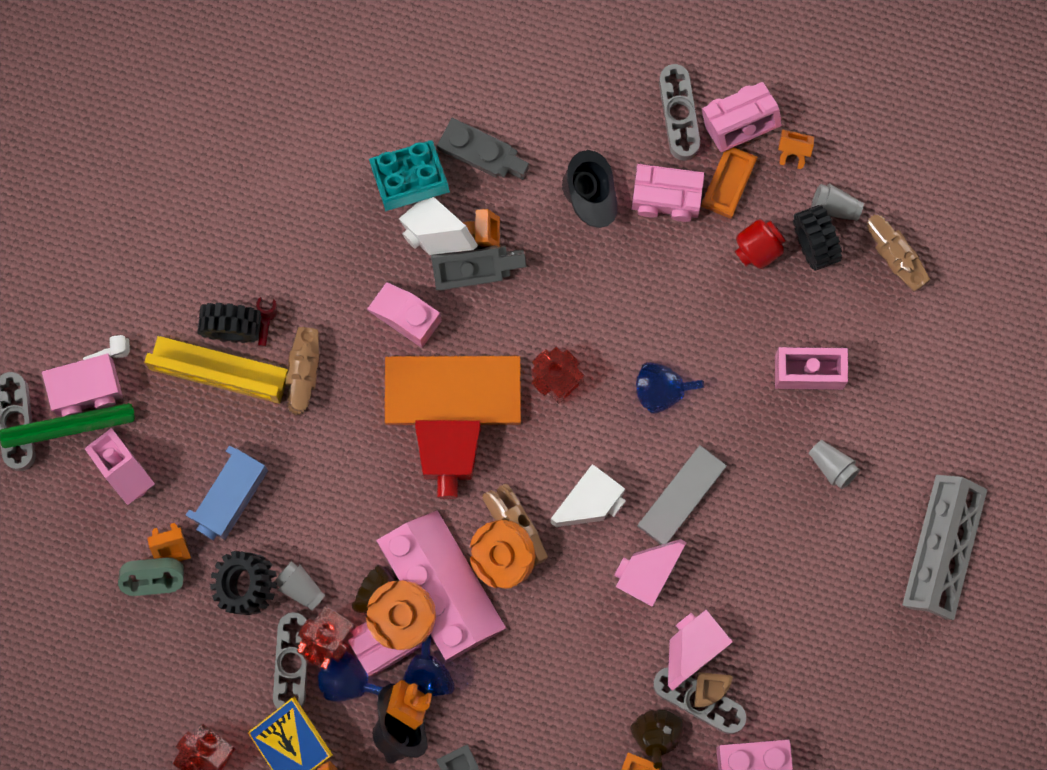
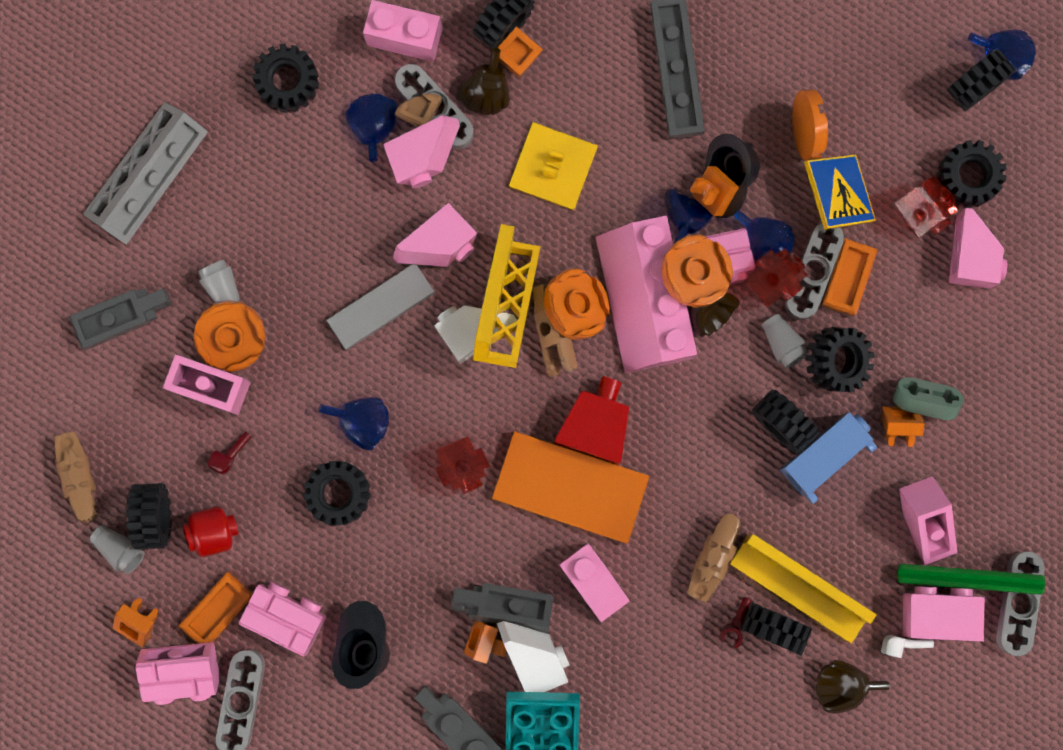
camera: 160 degrees left, 5 degrees up
(144, 726) = (976, 253): none -> bright pink slope
(152, 296) = (844, 687): none -> dark brown piece
(256, 668) = (849, 277): none -> orange tile
(276, 508) = (785, 421): none -> black tyre
(568, 683) = (553, 166): none -> yellow piece
(580, 533) = (495, 291): none -> yellow fence
(669, 297) = (315, 493): none -> black tyre
(753, 667) = (372, 120): none -> clear blue piece
(775, 309) = (223, 462): none -> dark red hand
(808, 421) = (229, 335): none -> orange tile
(867, 670) = (281, 58): none -> black tyre
(917, 405) = (118, 316): none -> dark grey hinge

